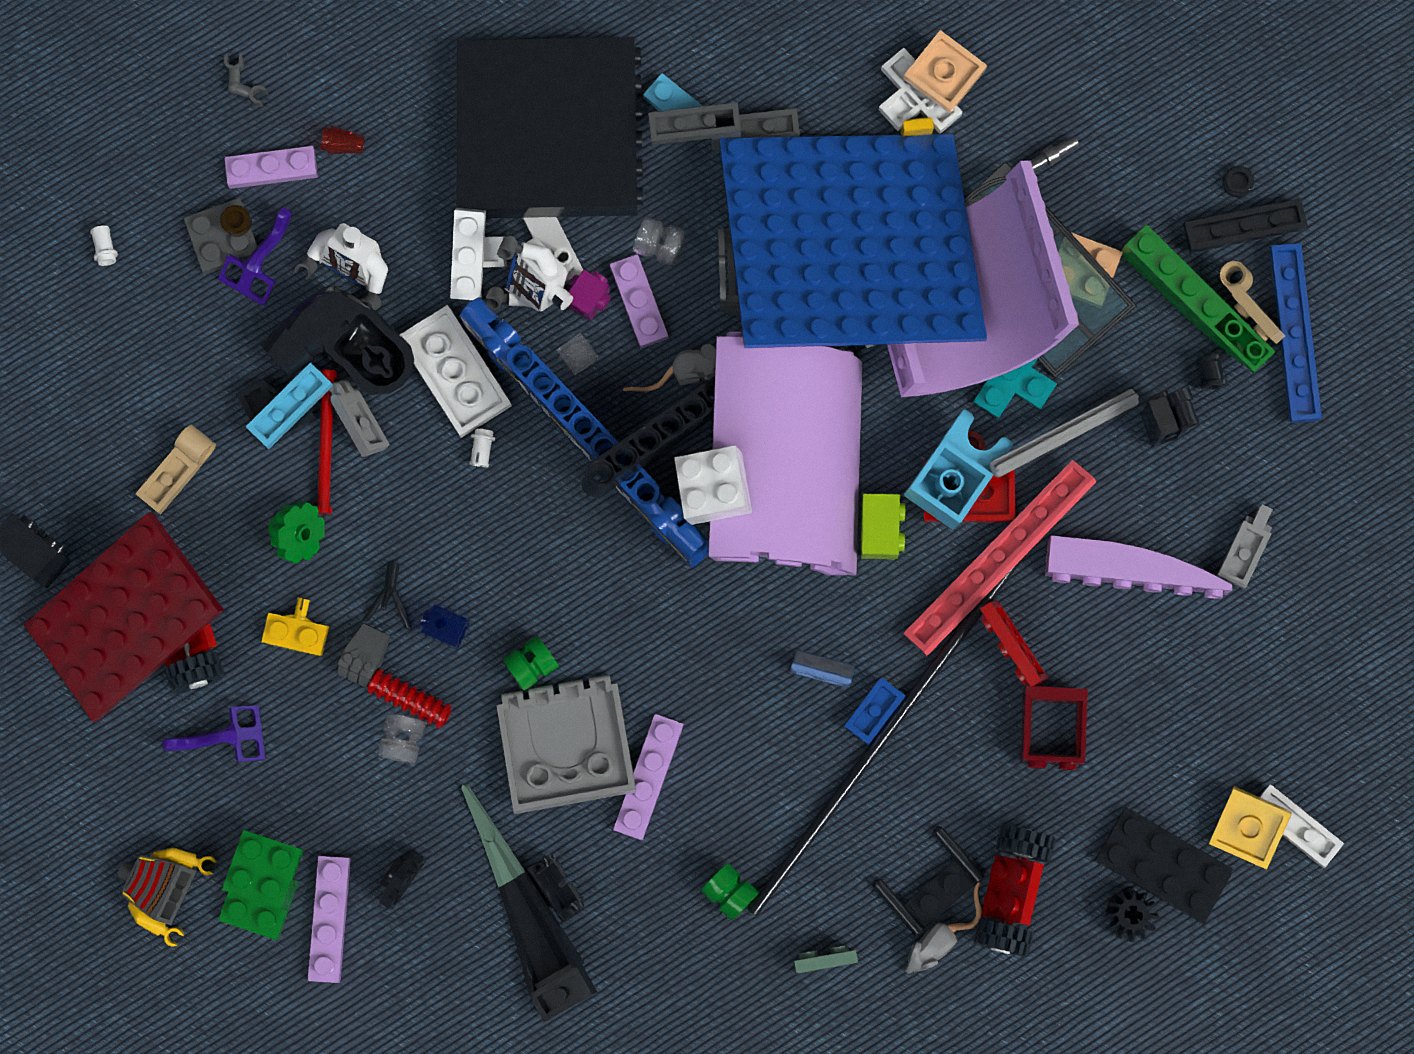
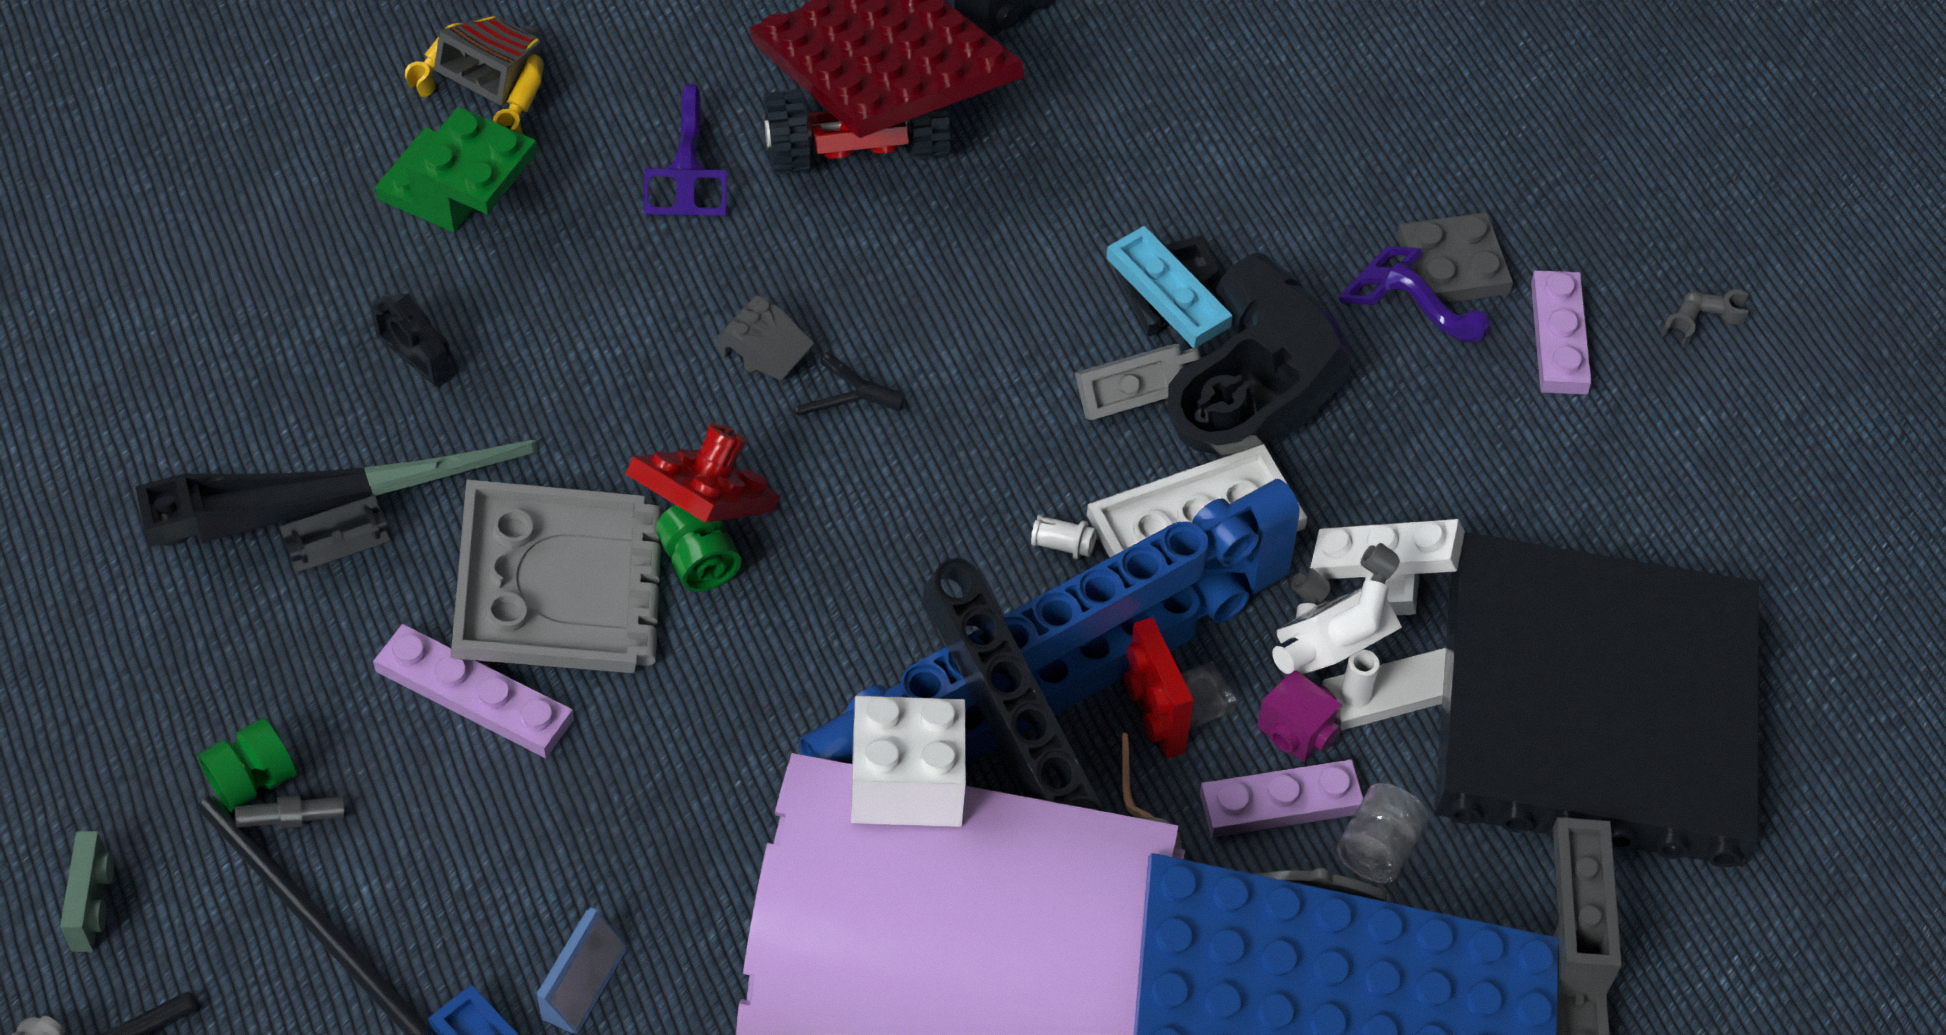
camera: 95 degrees right, 25 degrees down
(103, 246) = (1452, 117): white pin -> none
(176, 470) = (1097, 157): tan plate -> none
(235, 220) = (1473, 263): dark brown tile -> none
(296, 531) = (971, 274): green plant -> none
(296, 631) = (824, 270): yellow plate -> none
(325, 448) = (1085, 336): red bar -> none
(329, 919) = (385, 255): lavender plate -> none
(341, 141) = (1596, 417): clear red cone -> none
(351, 256) = (1395, 403): white torso -> none
(399, 749) = (618, 363): clear wheel -> none
(409, 698) = (684, 388): red piece -> none
(444, 626) = (783, 446): clear blue brick -> none
(495, 663) = (706, 478): none -> red plate
(598, 369) = (1159, 689): none -> red plate
(667, 95) = (1647, 901): medium azure plate -> none
(751, 860) = (289, 812): none -> flat silver bar

